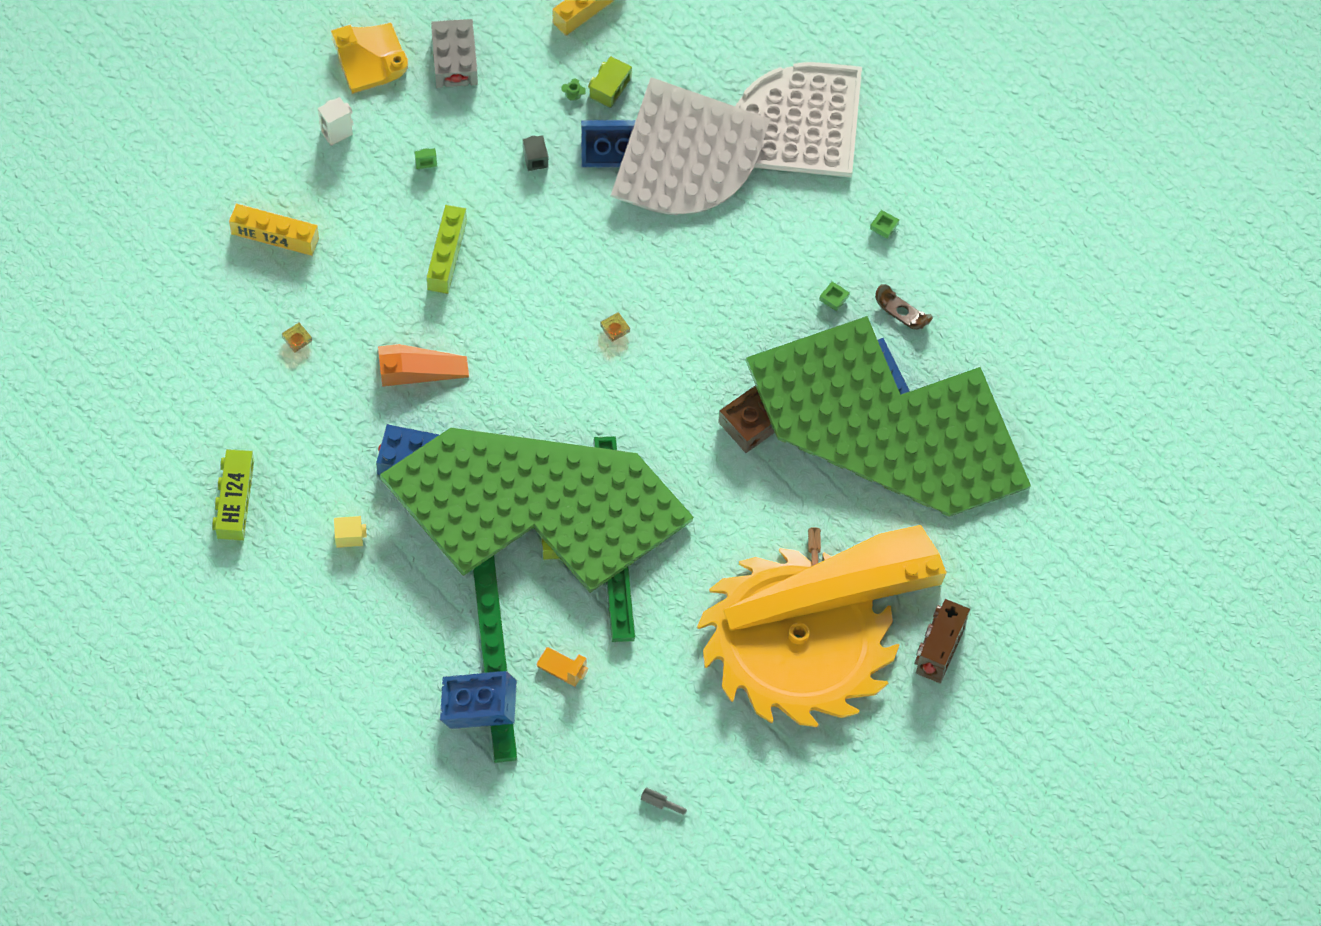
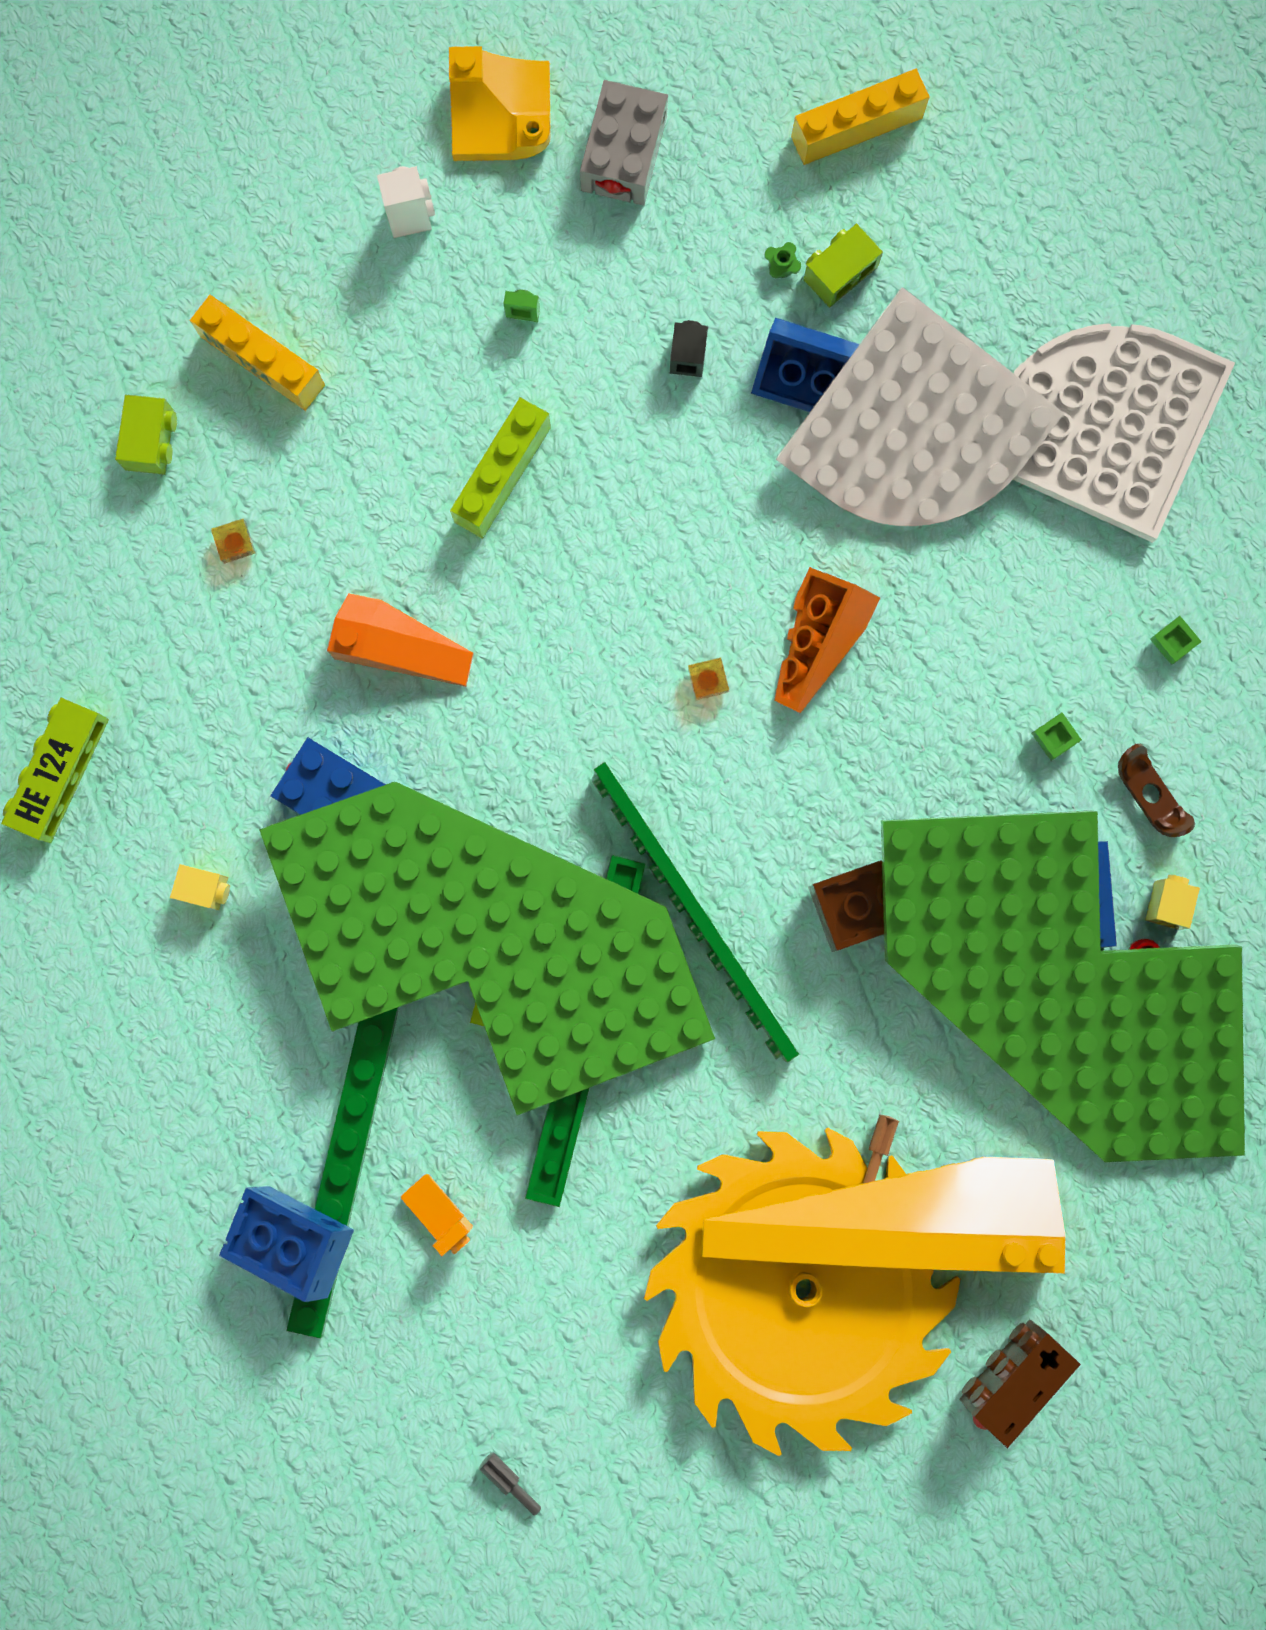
camera: 20 degrees right, 20 degrees up
(221, 294) = (145, 434): none -> lime brick
(662, 459) = (701, 925): none -> green plate
(675, 274) = (826, 627): none -> orange wedge
(936, 363) = (1172, 902): none -> light yellow brick

